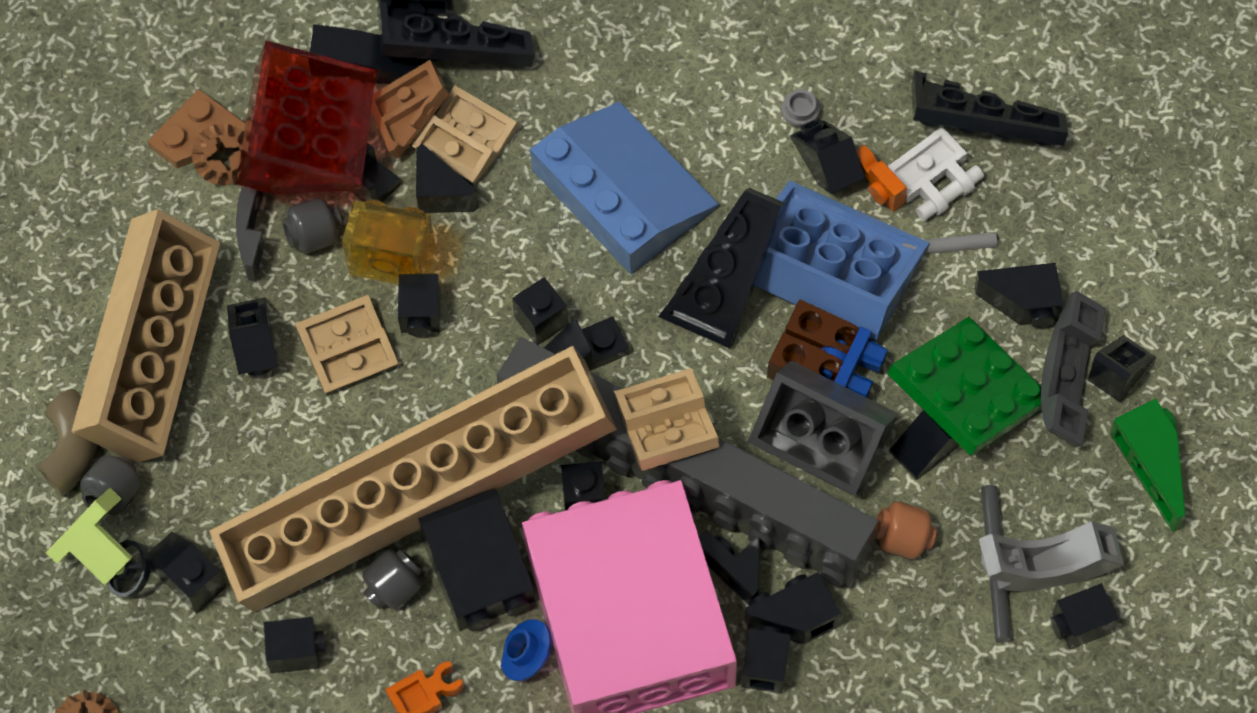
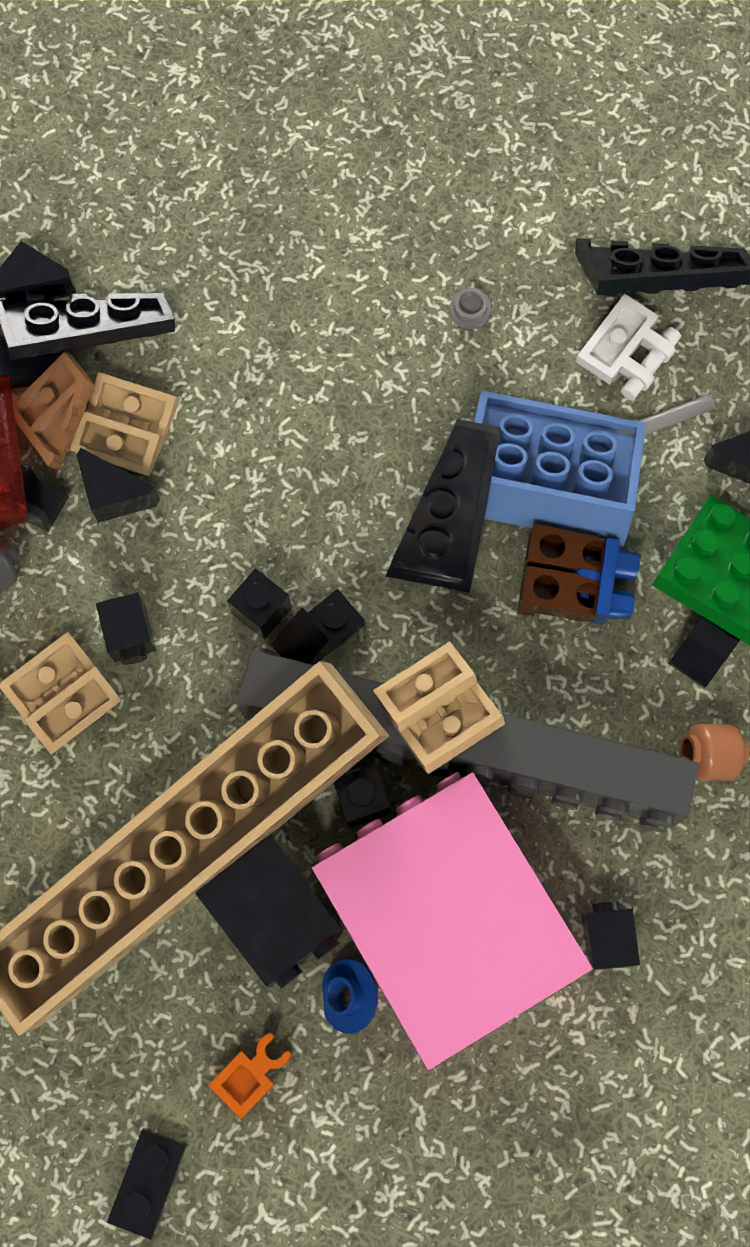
camera: 15 degrees left, 10 degrees up
(293, 645) = (93, 1059): black brick -> none
(388, 241) = (73, 569): clear yellow brick -> none
(392, 579) = (182, 953): dark grey head -> none
(621, 184) = (305, 438): medium blue slope -> none
(738, 572) = (556, 847): black slope -> none
(799, 609) = (629, 875): black slope -> none
(822, 427) = (602, 663): dark grey brick -> none
(828, 155) = (516, 353): black slope -> none
(883, 183) = (579, 368): orange plate -> none

